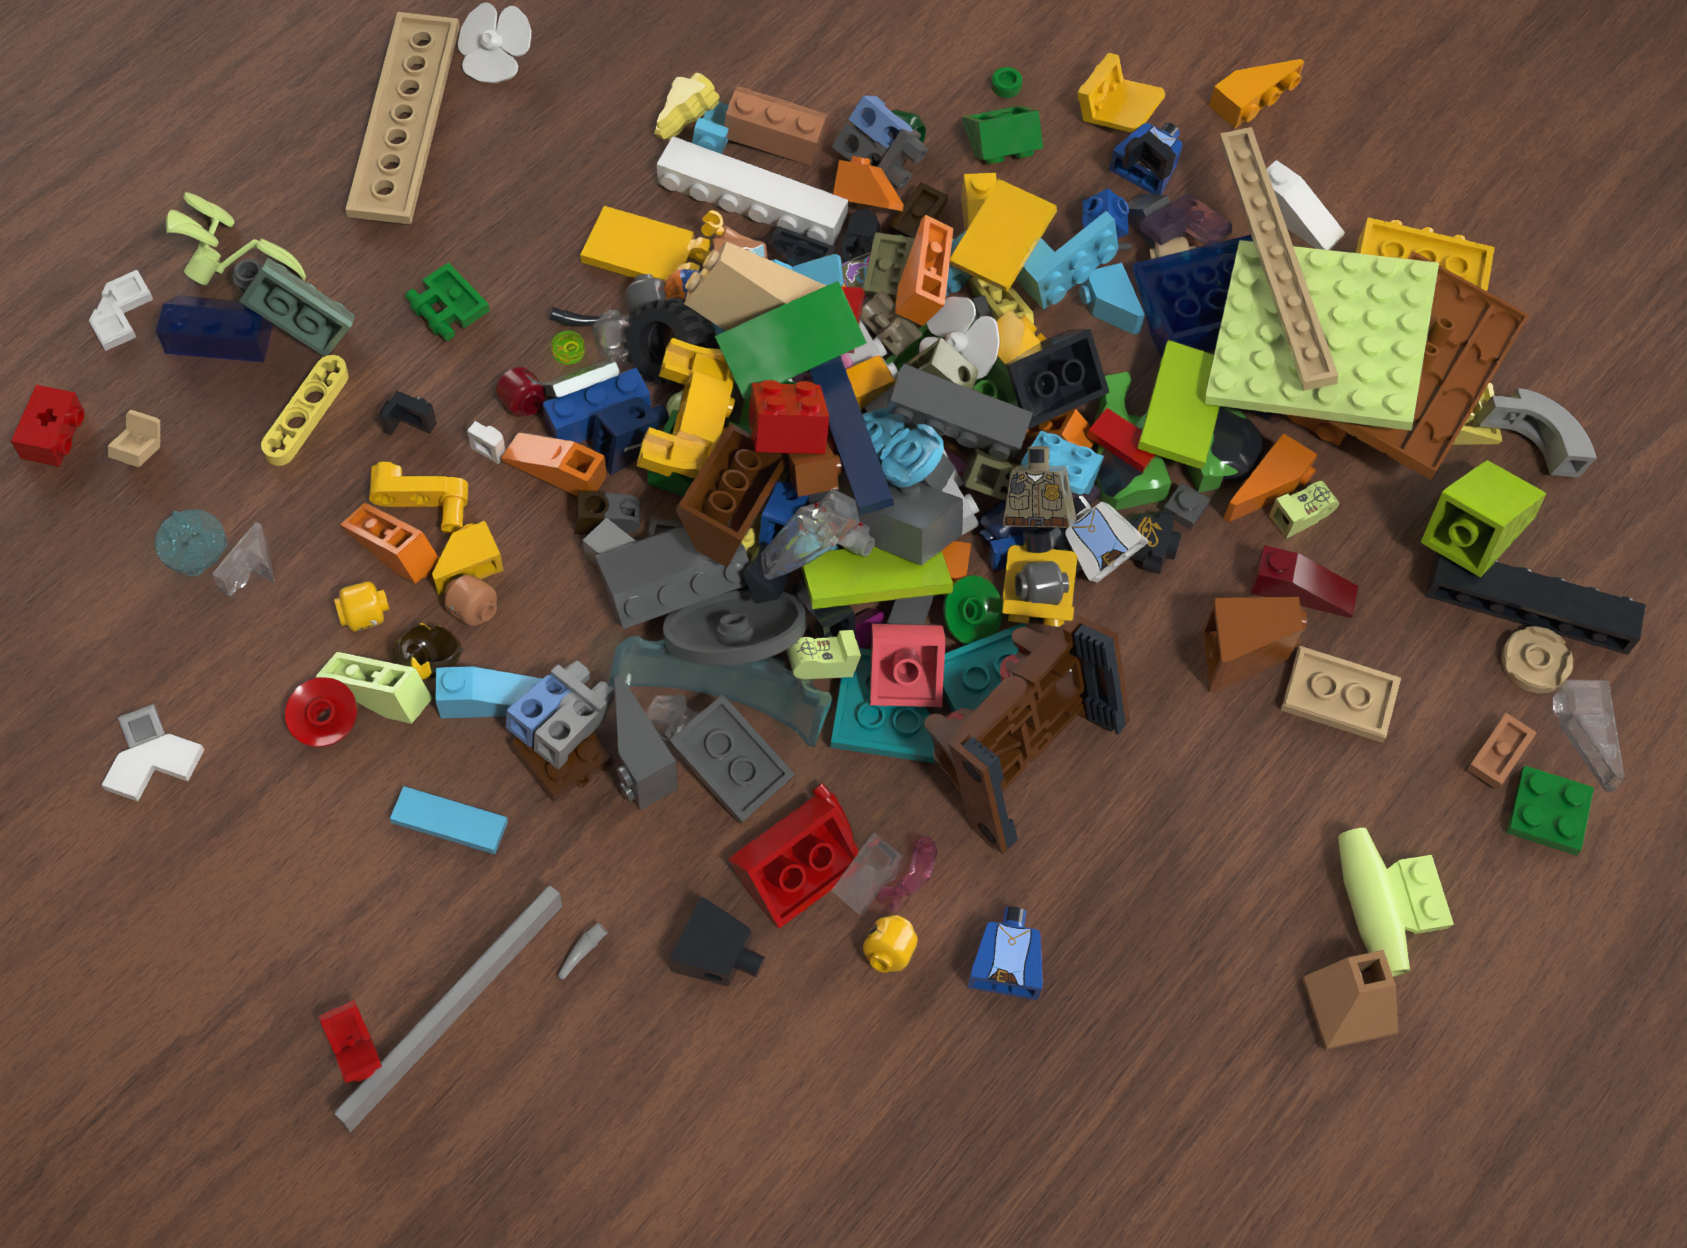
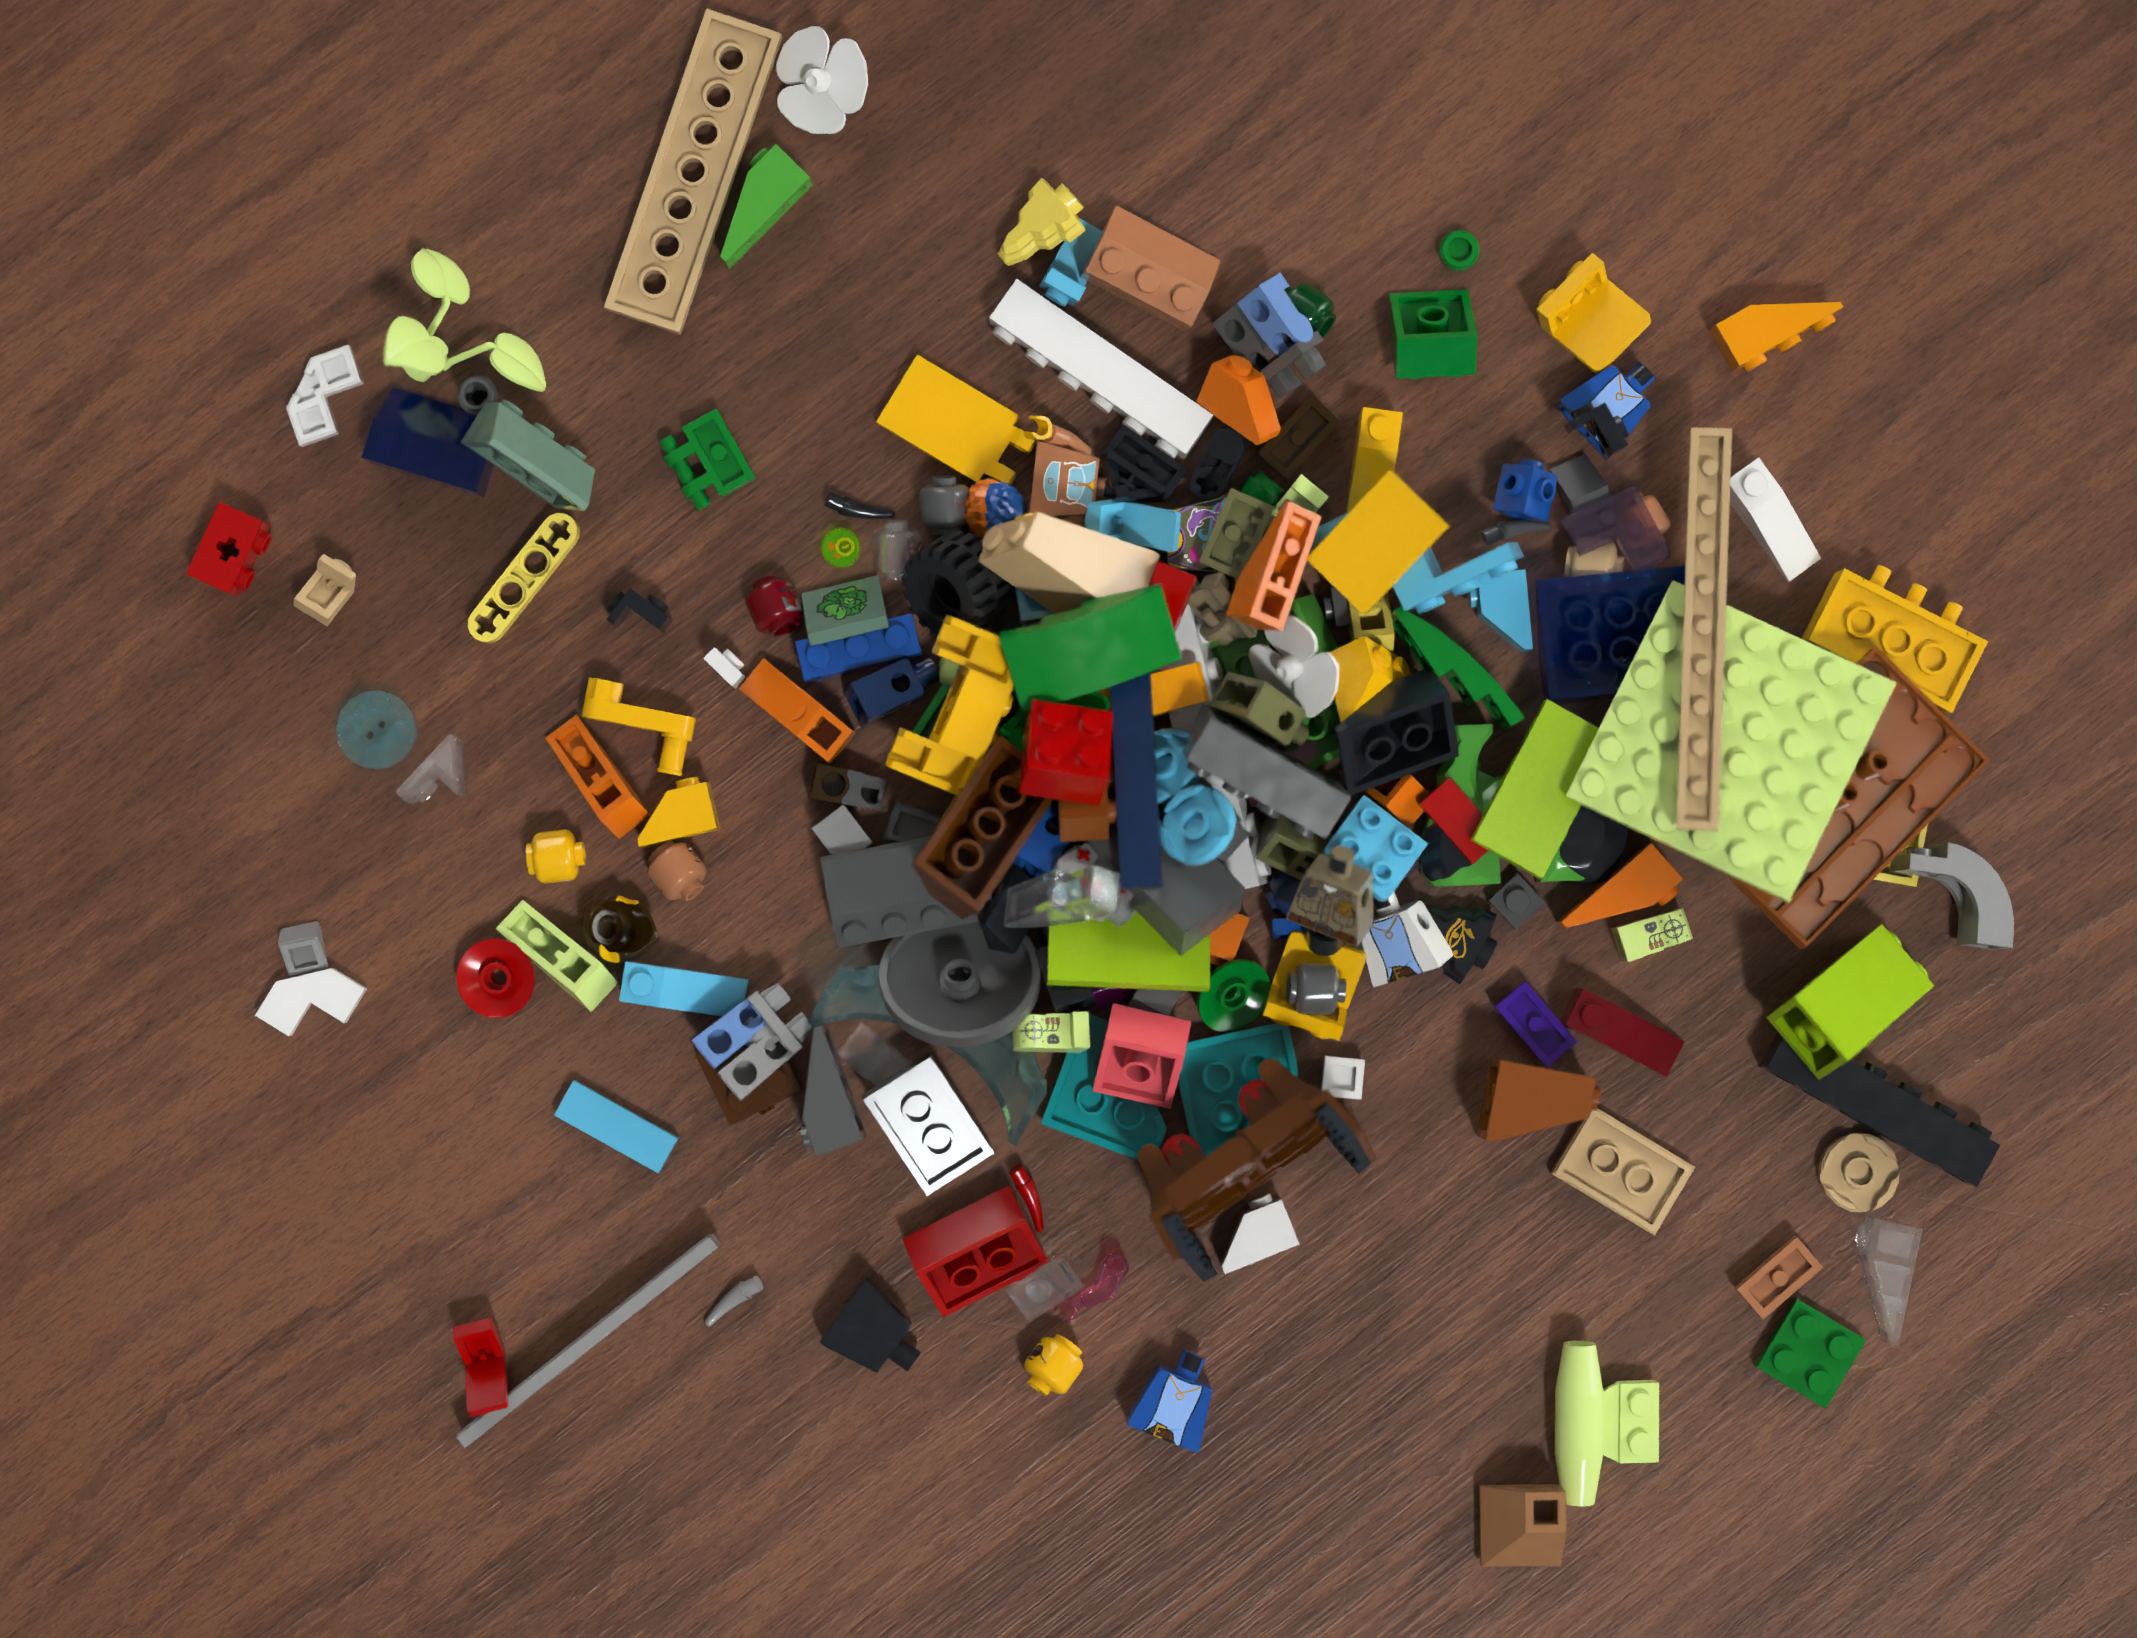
camera: 15 degrees right, 25 degrees up
(466, 119) = (766, 196): none -> bright green slope
(1047, 797) = (1259, 1233): none -> white slope
(1116, 344) = (1464, 673): none -> green slope
(1223, 582) = (1535, 1024): none -> dark purple plate

